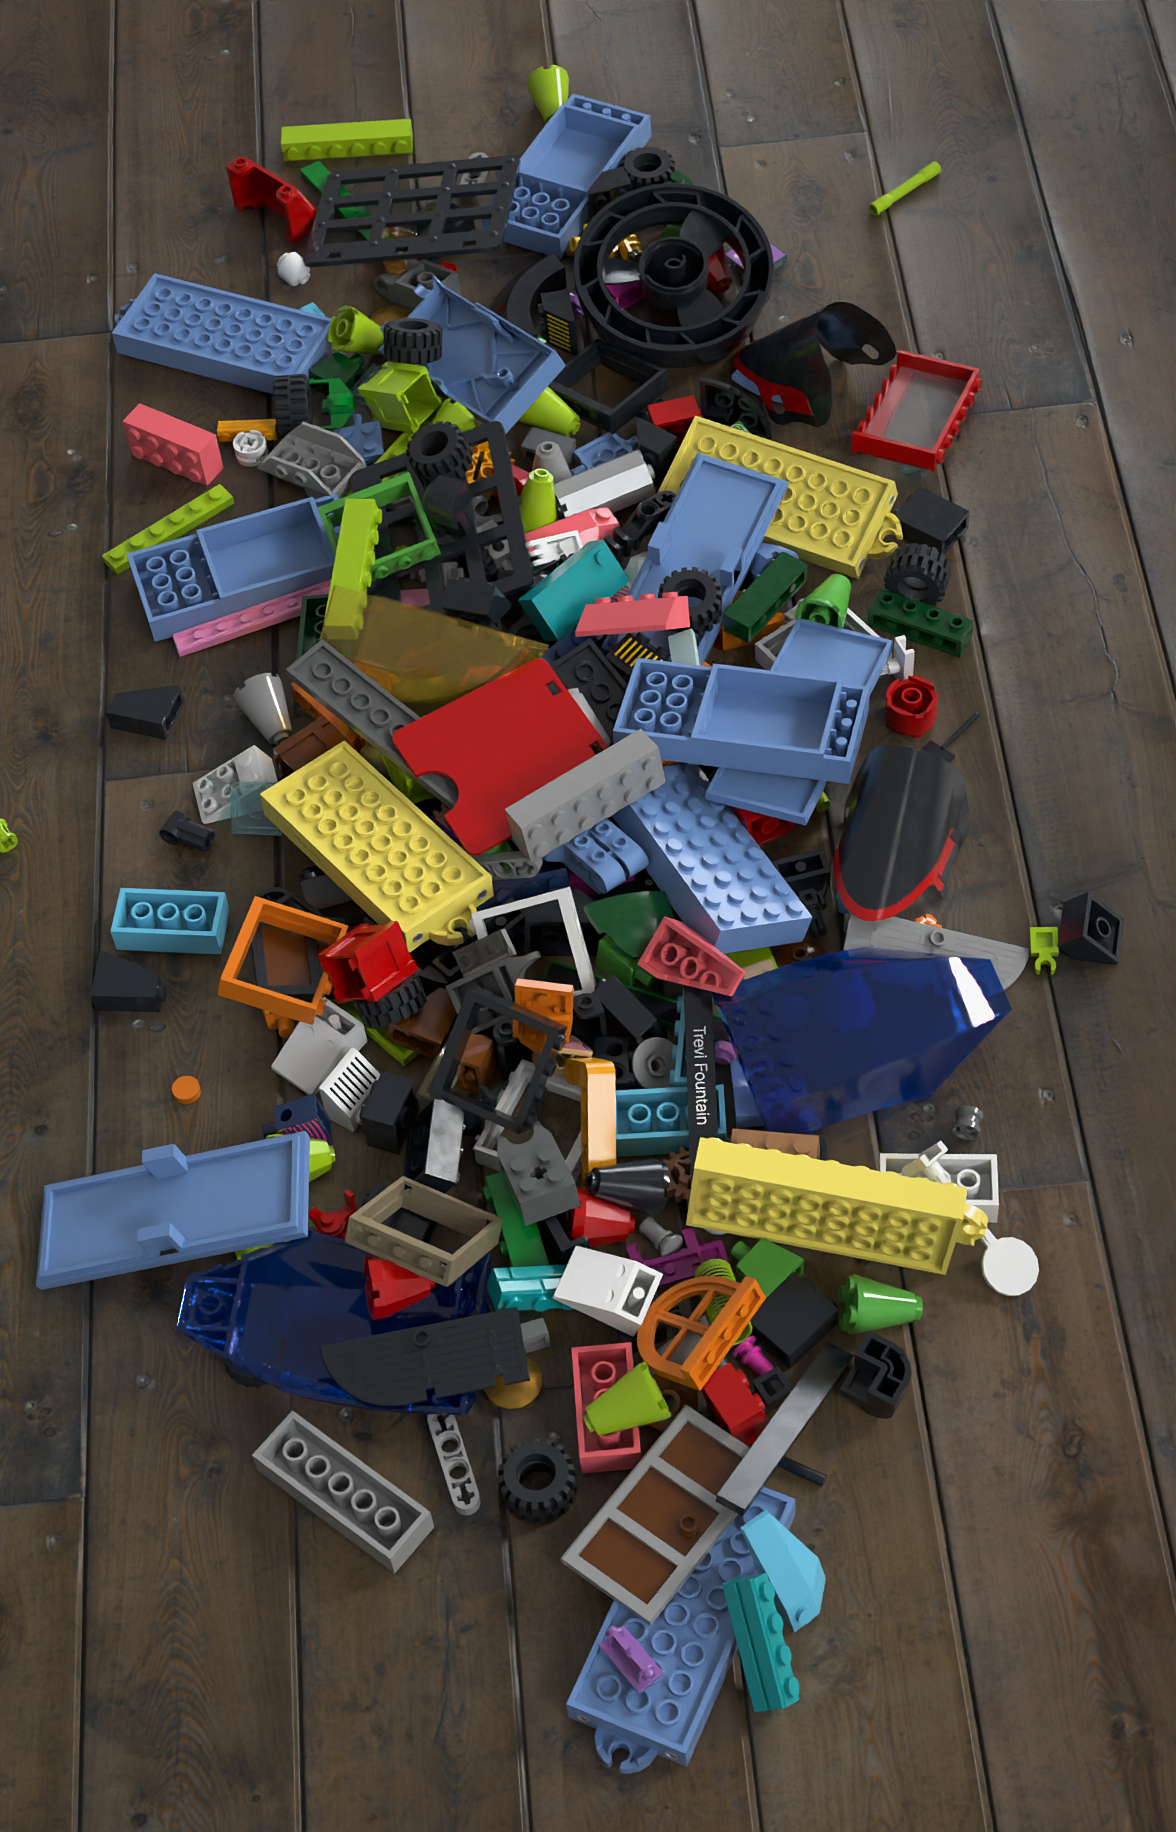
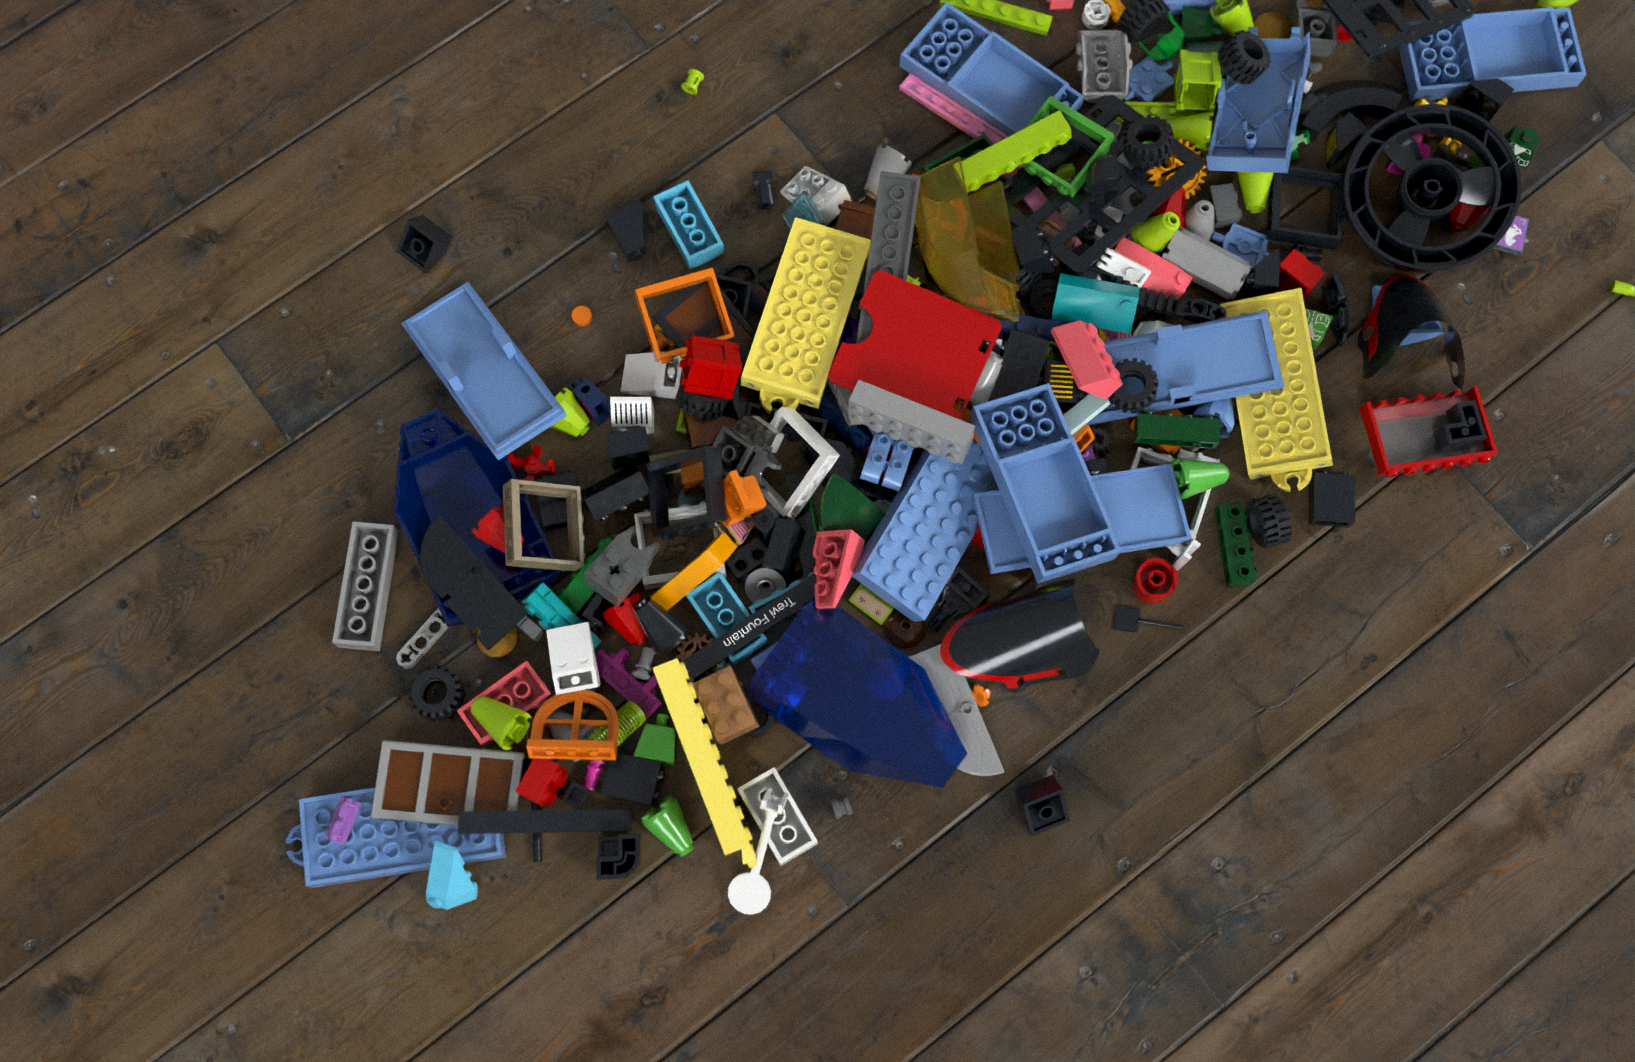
camera: 50 degrees right, 20 degrees up
(146, 711) = (840, 100): black slope -> none
(648, 166) = (1537, 97): black tyre -> none
(761, 1642) = (395, 889): teal brick -> none
(933, 377) = (1463, 430): none -> black brick
(1044, 946) = (1012, 779): lime plate -> none

